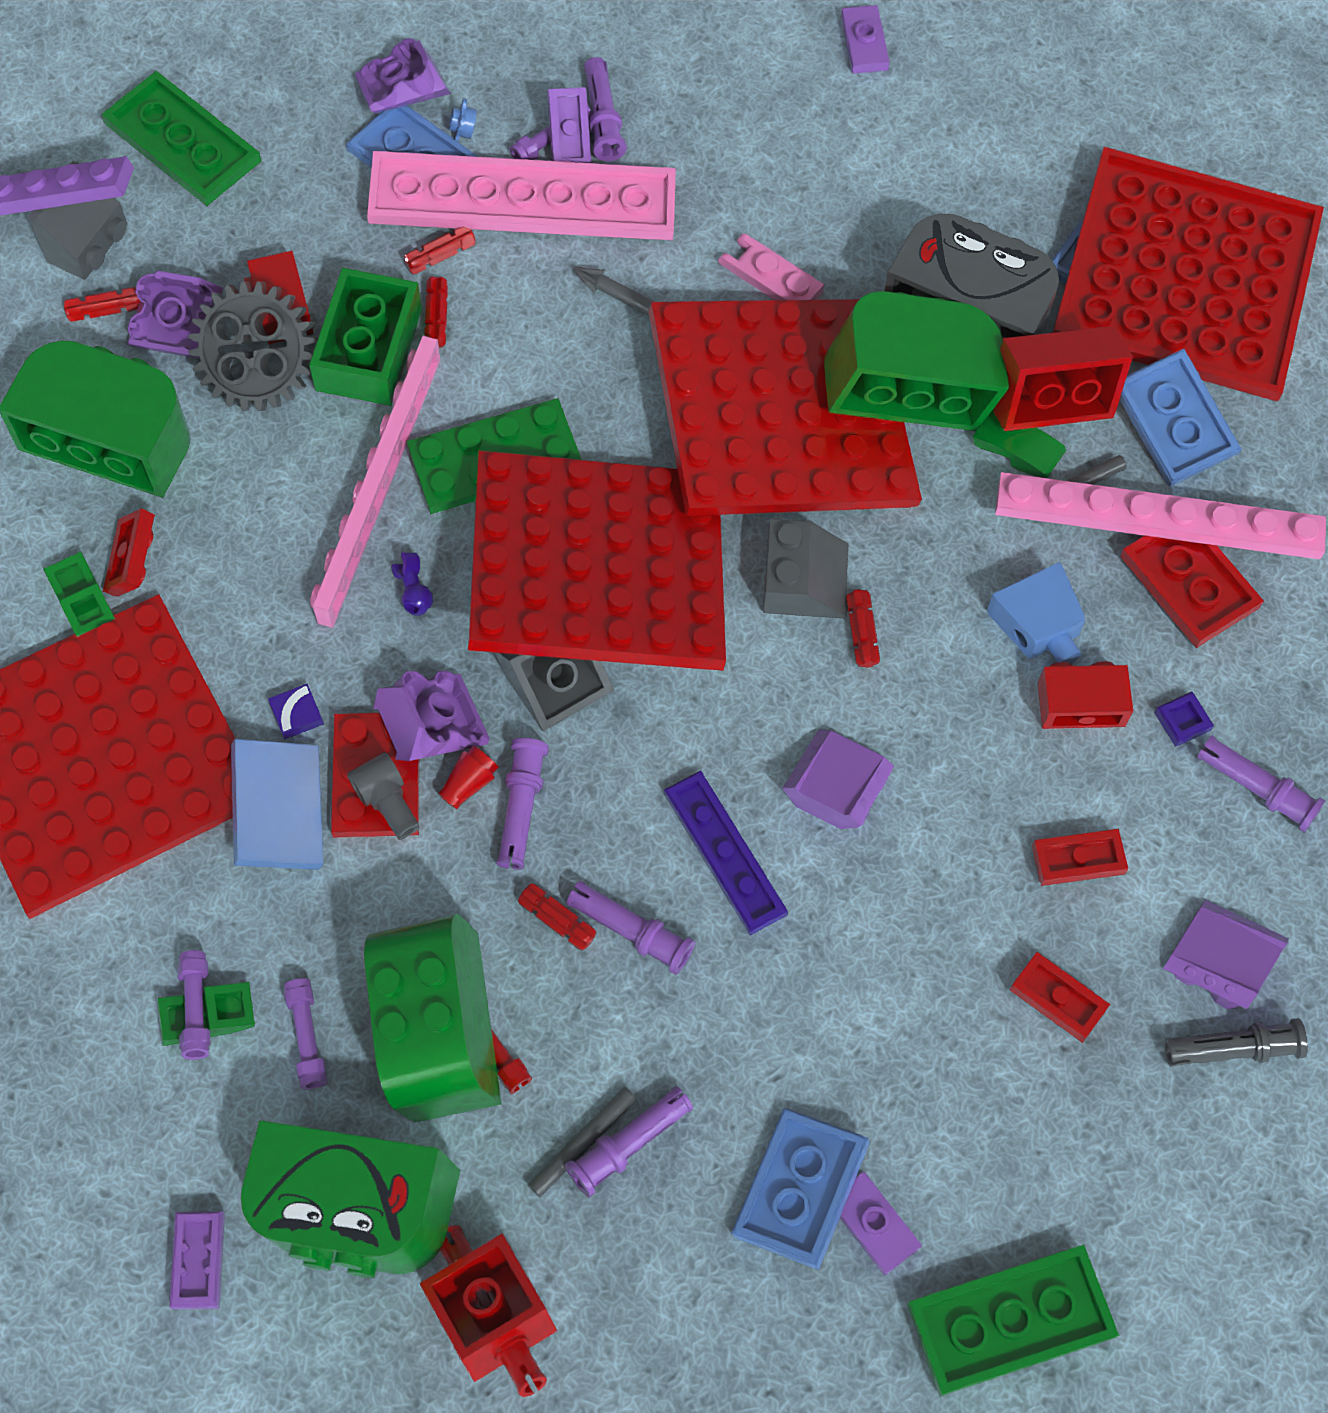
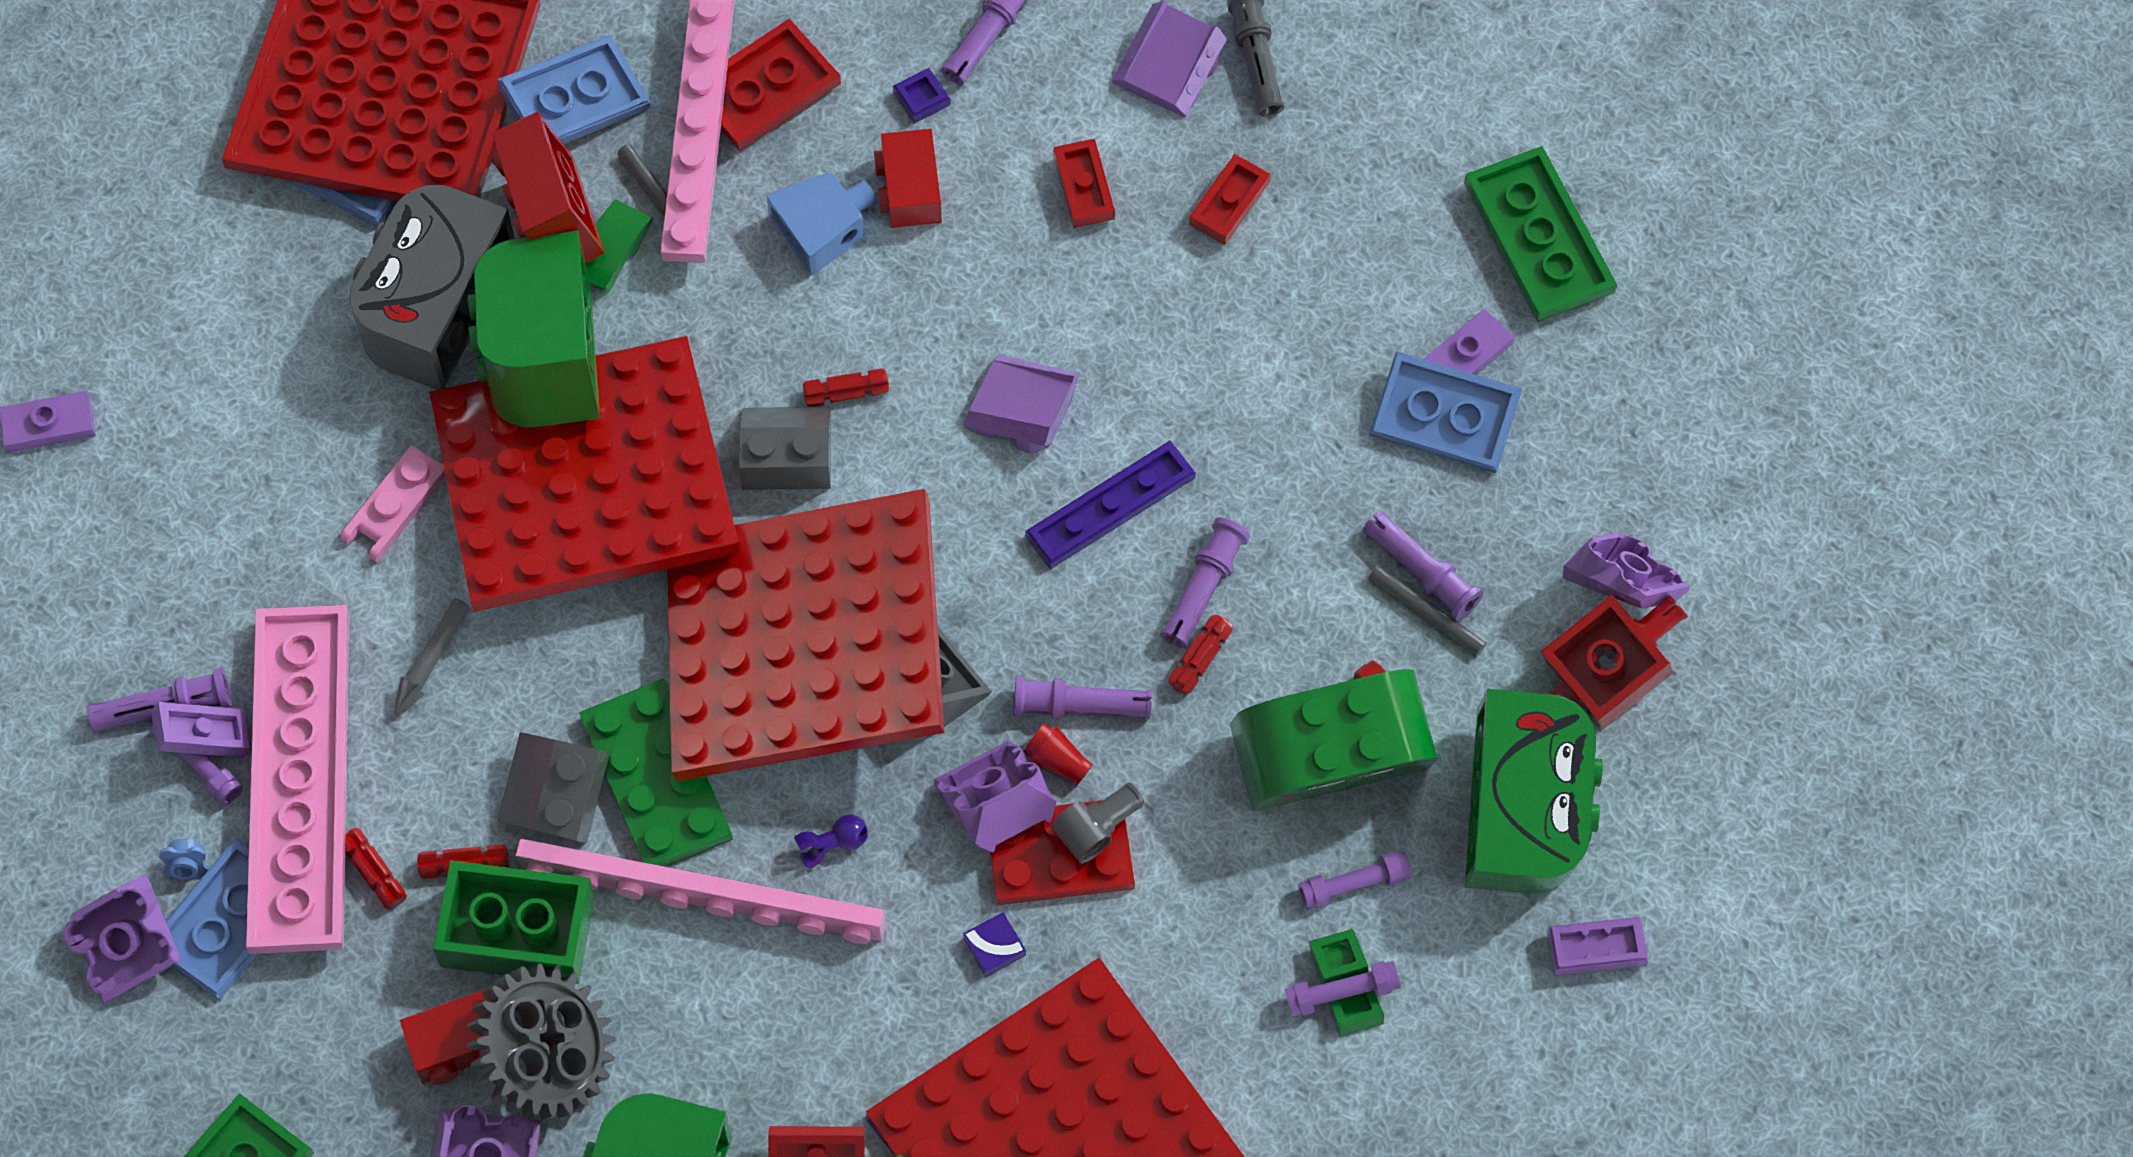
camera: 95 degrees left, 0 degrees up
(276, 805) = (1112, 939): medium blue tile -> none
(482, 374) = (553, 787): none -> dark grey slope
(582, 1342) = (1623, 568): none -> medium lavender slope

